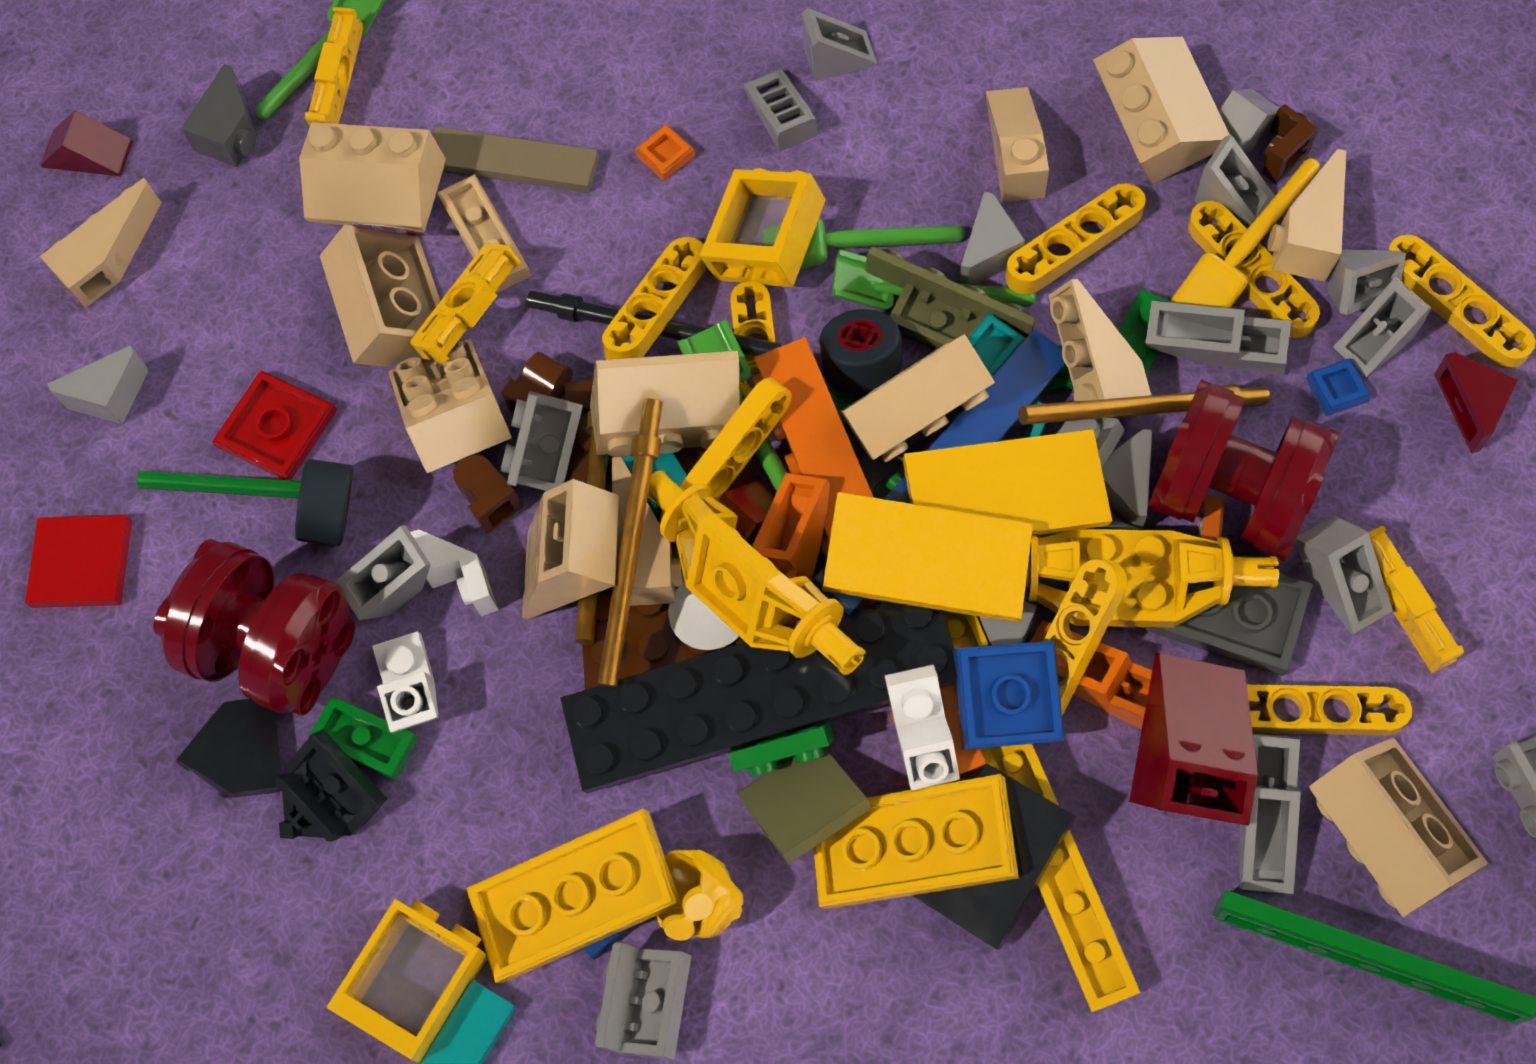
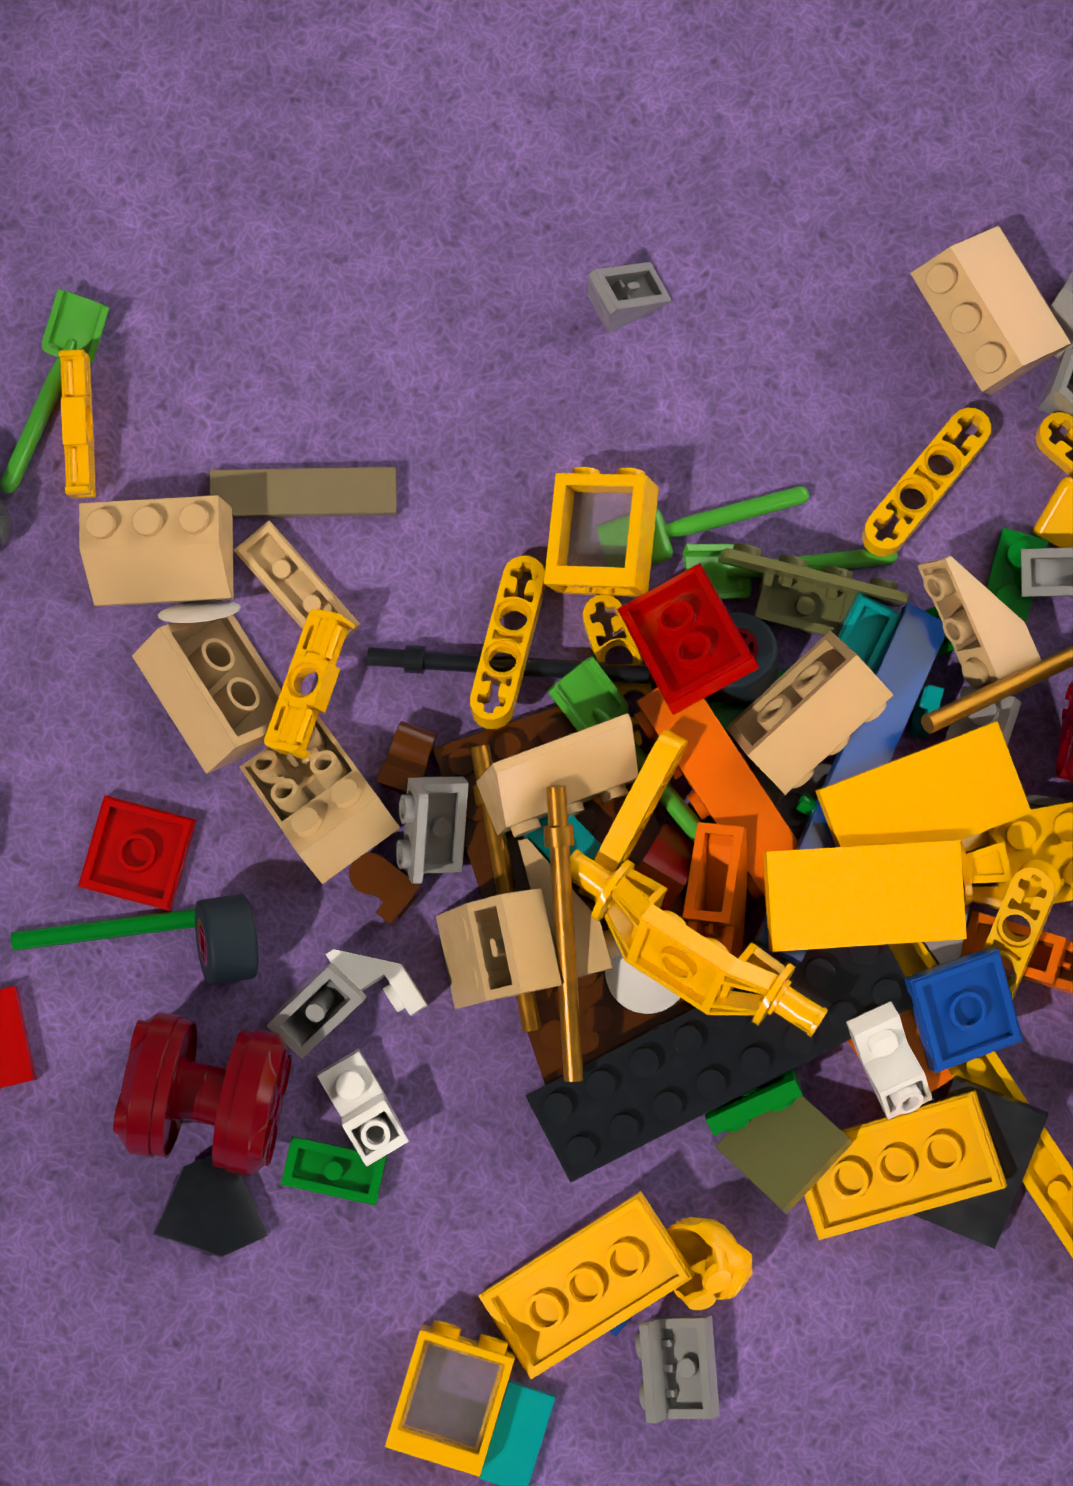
camera: 20 degrees left, 15 degrees up
(325, 792) = (314, 1234): black slope -> none
(665, 152) = (468, 453): orange tile -> none
(792, 131) = (603, 405): light grey slope -> none
(814, 313) = (687, 639): none -> red tile
(990, 242) = (841, 503): light grey slope -> none
(1017, 144) = (843, 375): tan slope -> none
(1127, 479) = (1033, 747): light grey slope -> none

